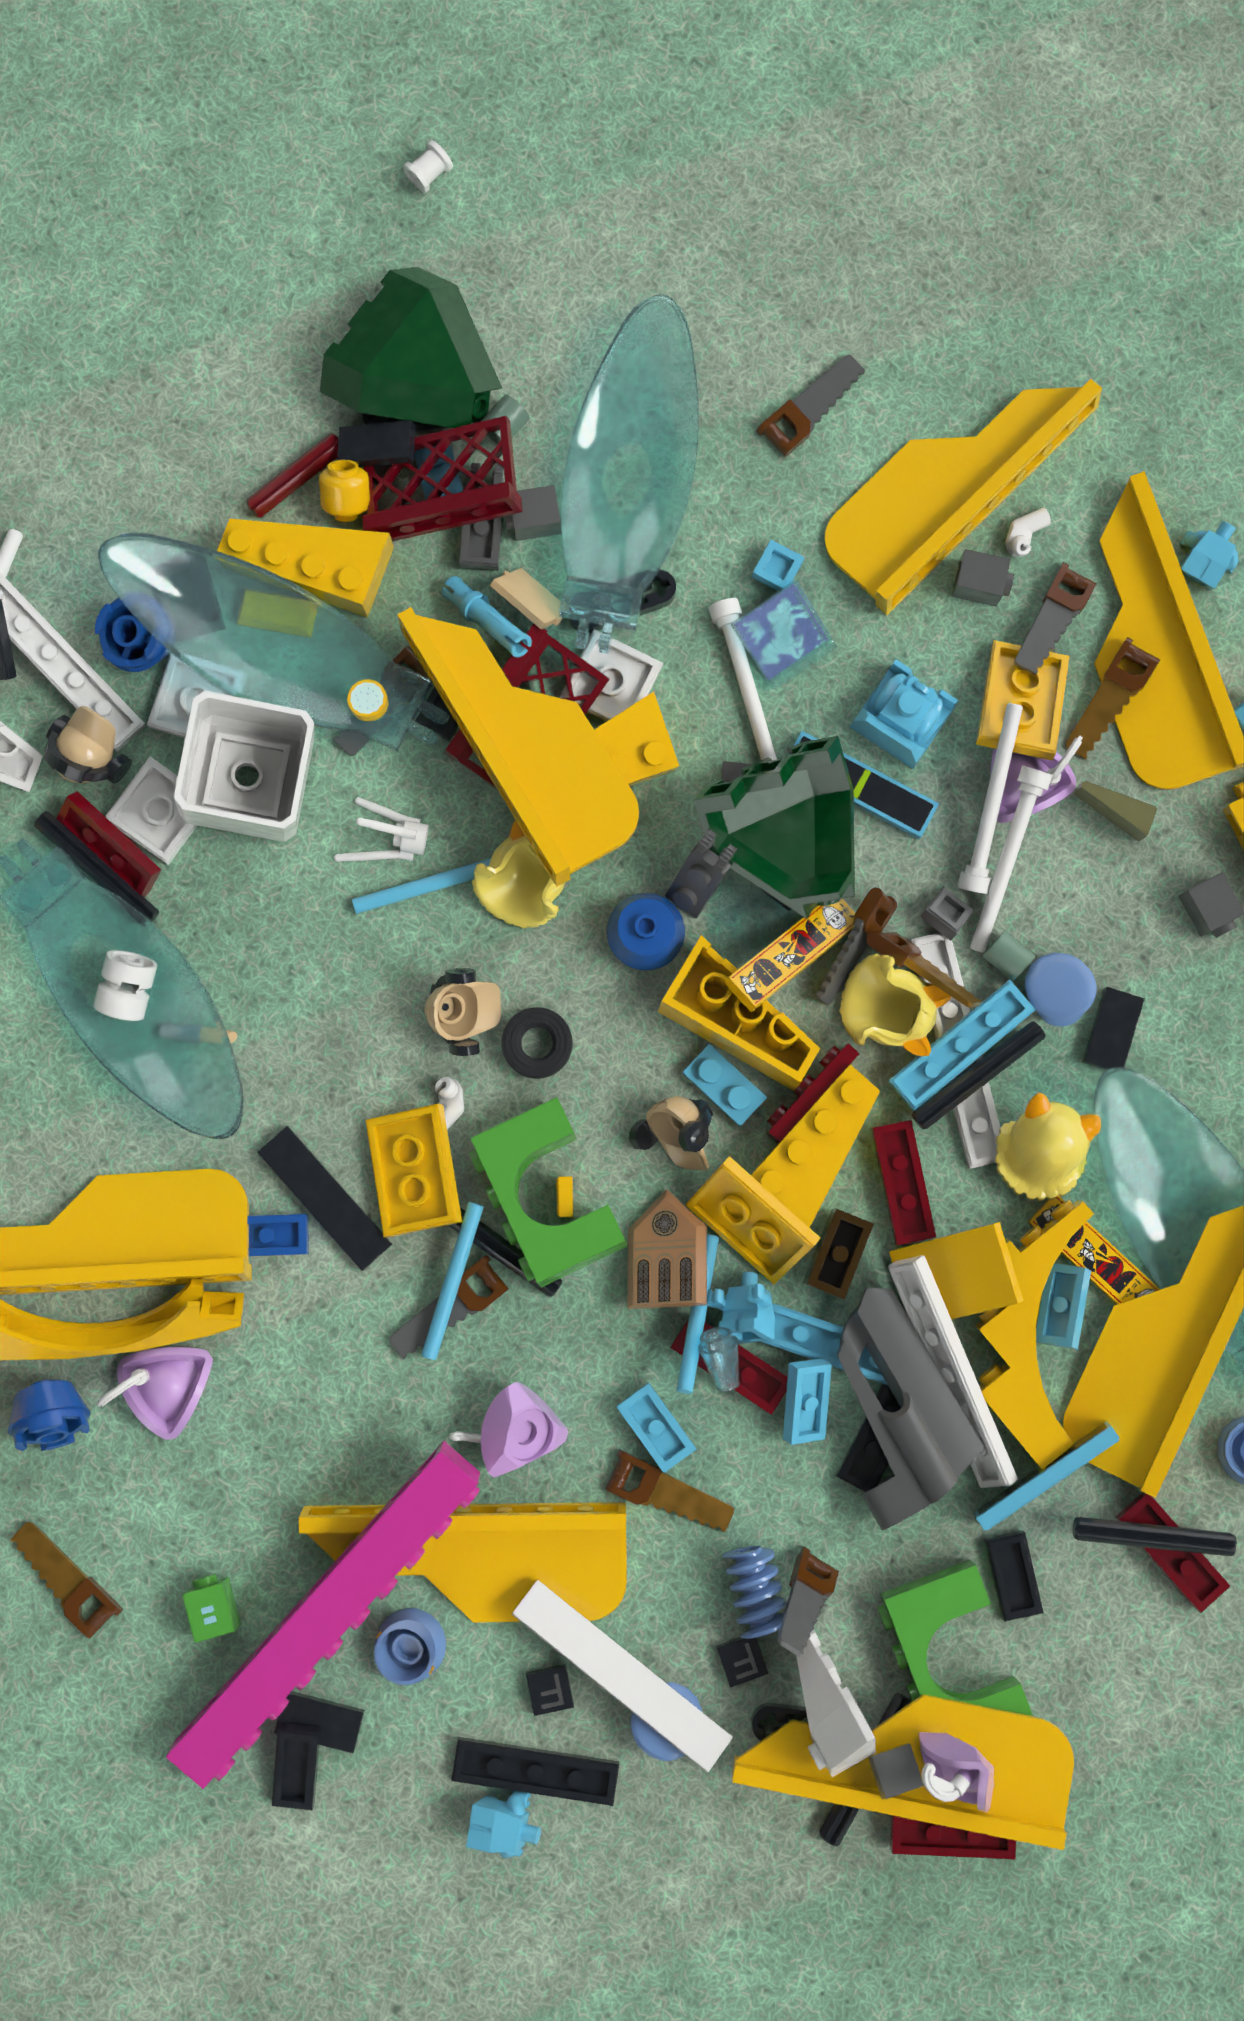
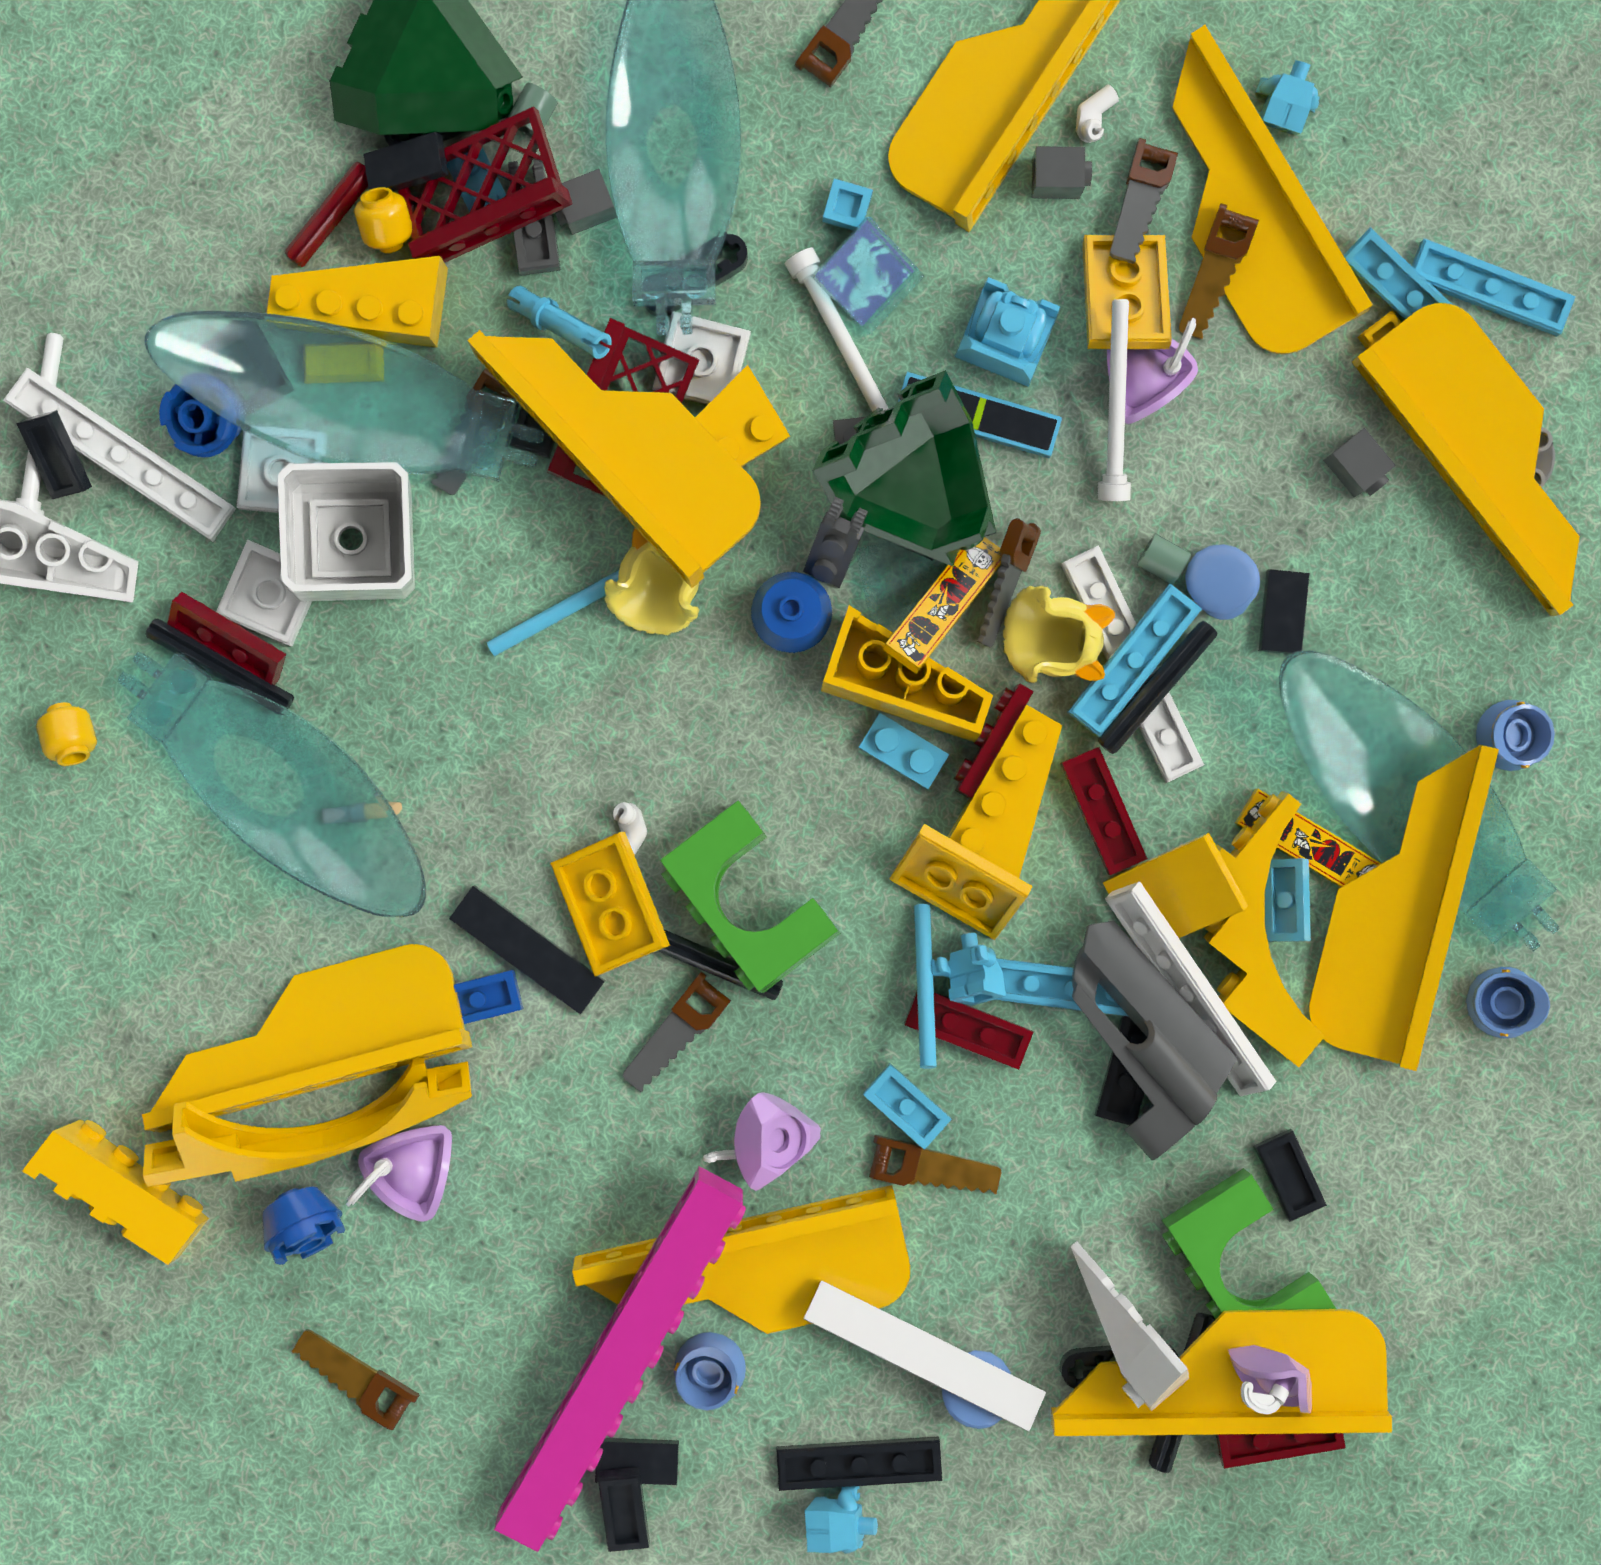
camera: 10 degrees left, 5 degrees up
(84, 748) = (178, 546): cap -> none
(125, 985) = (277, 777): white wheel -> none
(211, 1608) = (505, 1376): bright green brick -> none
(367, 700) = (457, 435): tile -> none
(408, 835) = (528, 563): white plant -> none
(452, 1280) = (673, 1005): medium azure bar -> none
(462, 1009) = (622, 731): tan cap -> none
(529, 597) = (598, 292): tan piece -> none
(537, 1018) = (705, 723): black tyre -> none
(550, 1690) = (856, 1382): black tile -> none
(565, 1196) = (767, 898): yellow tile -> none
(667, 1257) = (882, 936): medium nougat tile -> none
(680, 1128) = (869, 804): cap -> none
(720, 1355) = (957, 1024): clear light blue cone -> none
(742, 1660) = (1039, 1313): black tile -> none
(757, 1590) = (1041, 1244): medium blue piece -> none
(807, 1401) = (1051, 1049): medium azure plate -> none
(811, 1586) = (1090, 1244): dark grey piece -> none
(838, 1253) = (1053, 897): dark brown brick -> none
(895, 1771) = (1213, 1391): dark grey tile -> none
(909, 955) = (1063, 580): piece -> none
(947, 913) = (1092, 528): dark grey tile -> none
(1031, 785) = (1153, 379): white piece -> none
(1041, 1480) = (1299, 1078): medium azure tile -> none
(1045, 1148) = (1239, 747): light yellow hair -> none
(1124, 811) = (1251, 385): olive slope -> none
(1154, 1536) = (1422, 1108): black axle -> none
(1186, 1570) = (1442, 1118): dark red plate -> none

